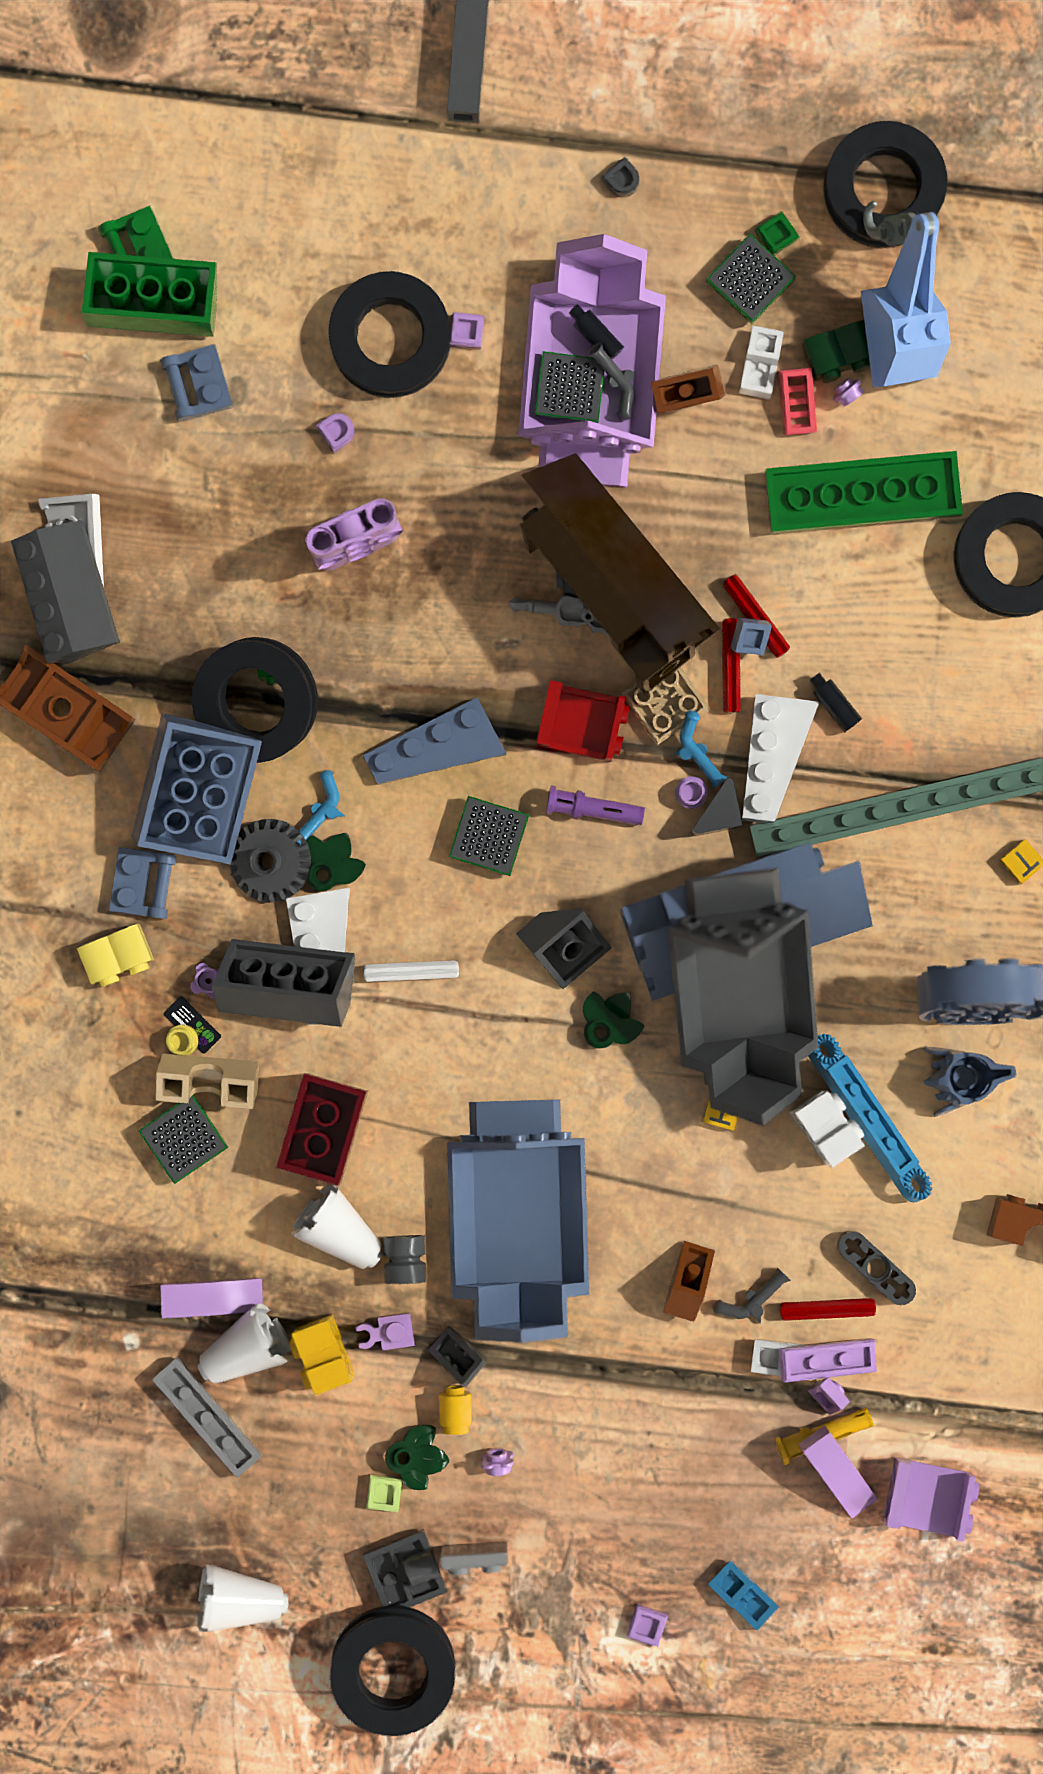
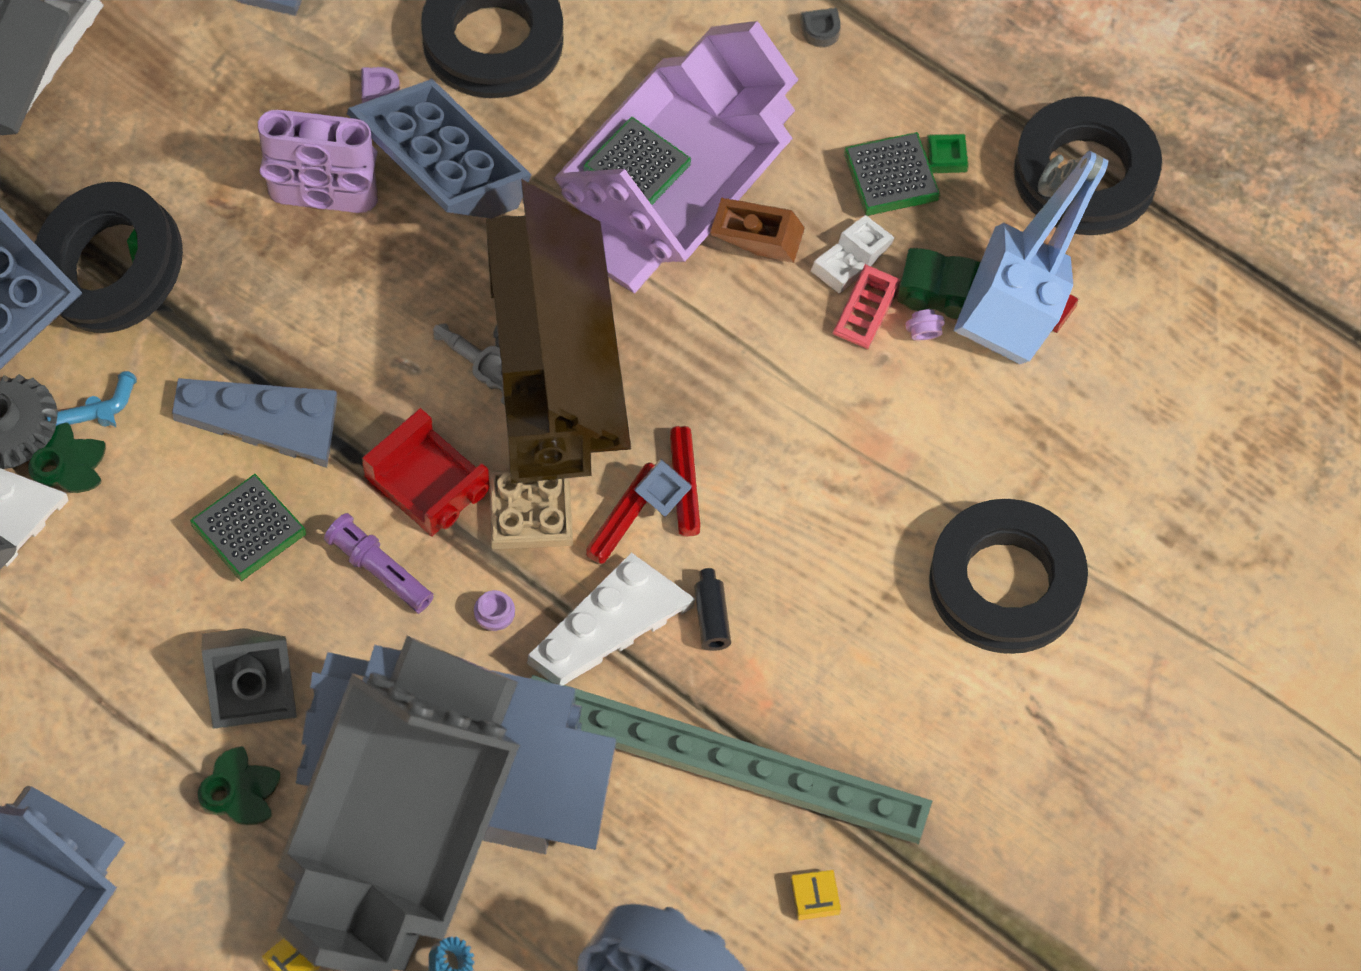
camera: 30 degrees right, 25 degrees down
(411, 971) = (66, 613): white axle -> none
(431, 470) = (444, 150): none -> sand blue slope
(466, 330) = (572, 71): lavender tile -> none
(595, 331) = (698, 134): black cylinder -> none
(617, 378) = (689, 180): dark grey piece -> none
(697, 751) = (527, 571): dark azure piece -> none
(721, 813) = (507, 643): dark grey slope -> none
(863, 492) = (880, 426): green plate -> none

